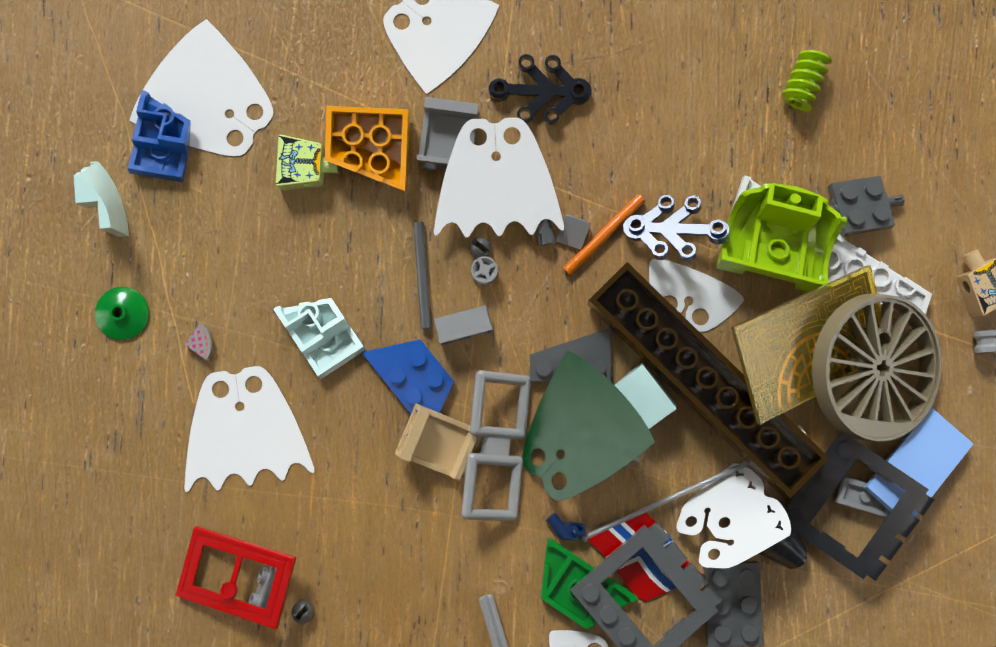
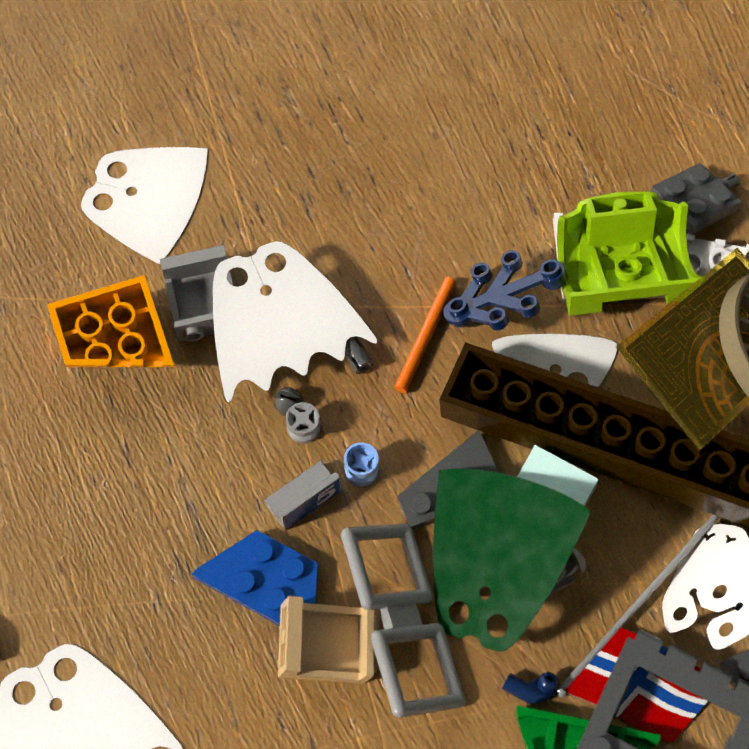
camera: 15 degrees left, 20 degrees down
(301, 164) = (39, 385): yellowish green torso -> none
(321, 334) = (131, 572): light aqua slope -> none
(422, 276) = (231, 459): dark grey bar -> none
(513, 320) = (361, 457): none -> light blue wheel
(544, 90) = (291, 210): black plant -> none
(574, 232) = (390, 342): light grey slope -> none
(803, 78) = (573, 98): lime piece -> none

